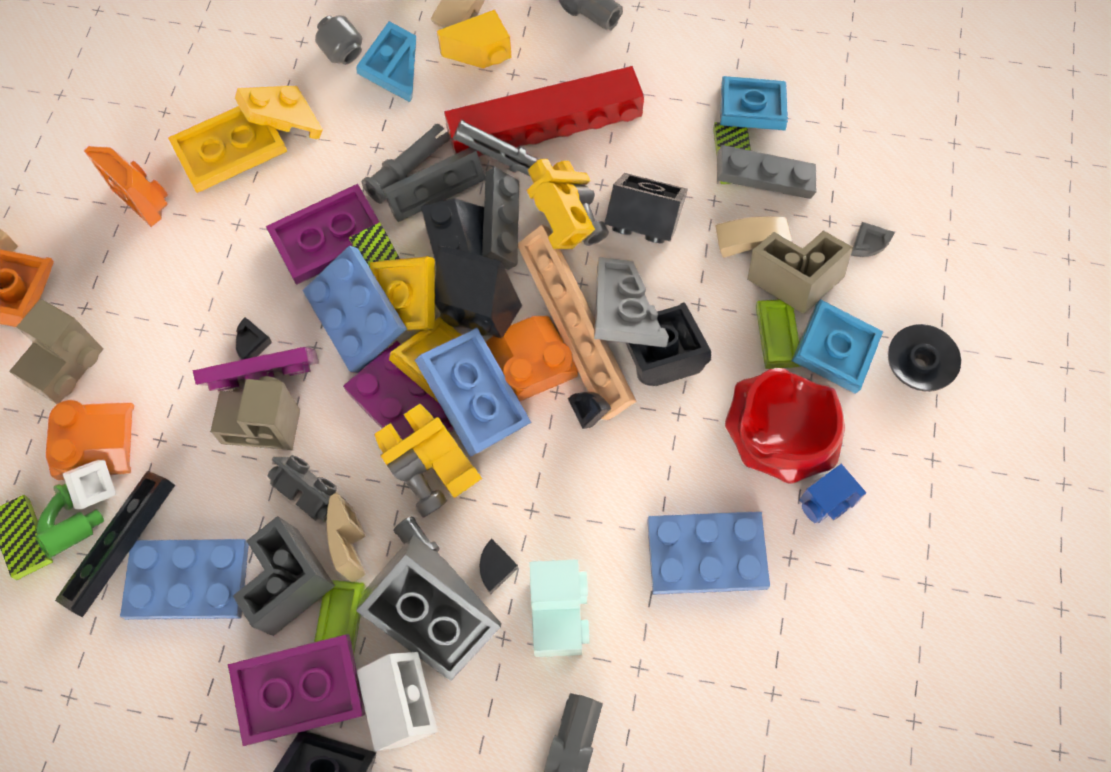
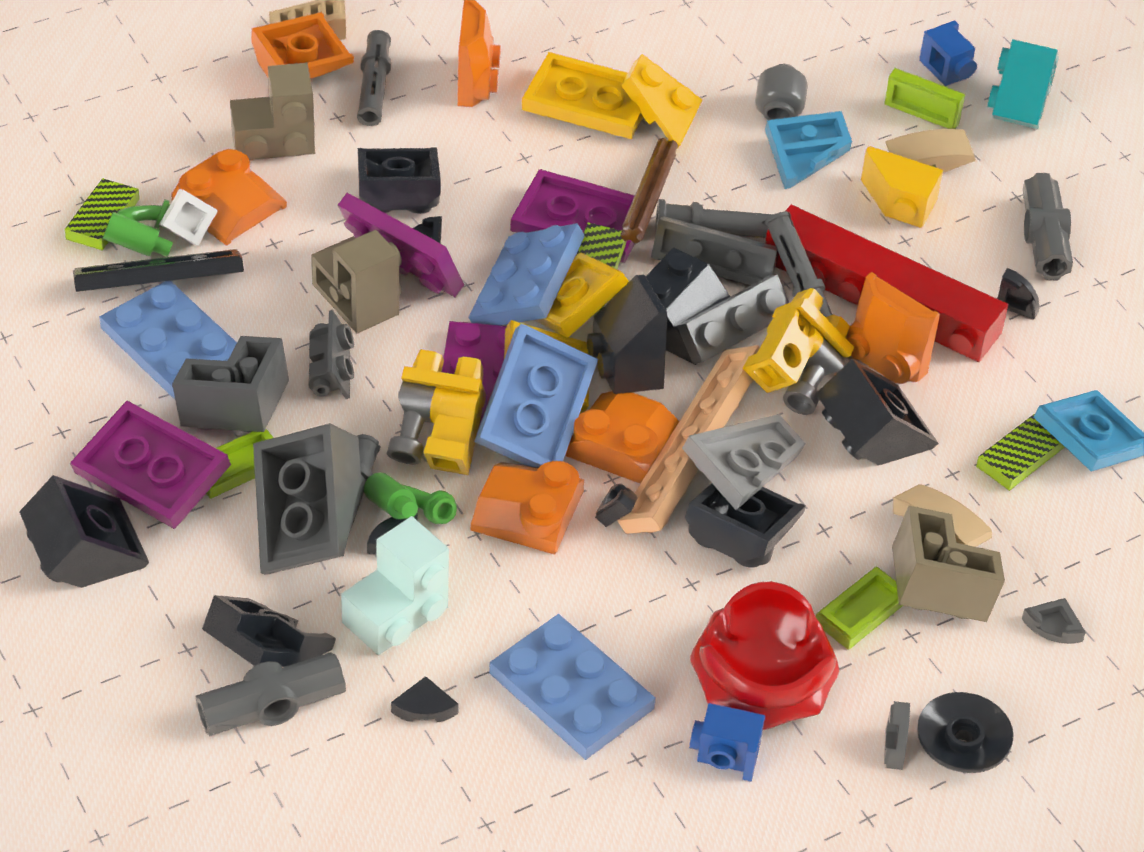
camera: 45 degrees right, 20 degrees down
(68, 249) = (377, 50): none -> dark grey pin
(187, 316) = (399, 178): none -> black slope
(342, 533) = (313, 403): tan slope -> none
(353, 180) = (649, 191): none -> reddish brown axle
(396, 701) = (205, 533): white brick -> none
(469, 542) = (403, 501): none -> bright green plant
(510, 725) = (261, 633): none -> black slope
(540, 460) = (528, 504): none -> orange slope
(597, 142) = (892, 332): none -> orange slope
(616, 54) = (1018, 294): none -> black tile
(651, 658) = (424, 702): none -> black tile
(766, 172) = (1025, 485): dark grey plate -> none
(837, 346) = (898, 656): dark azure plate -> none
(896, 396) = (896, 735): none -> dark grey tile

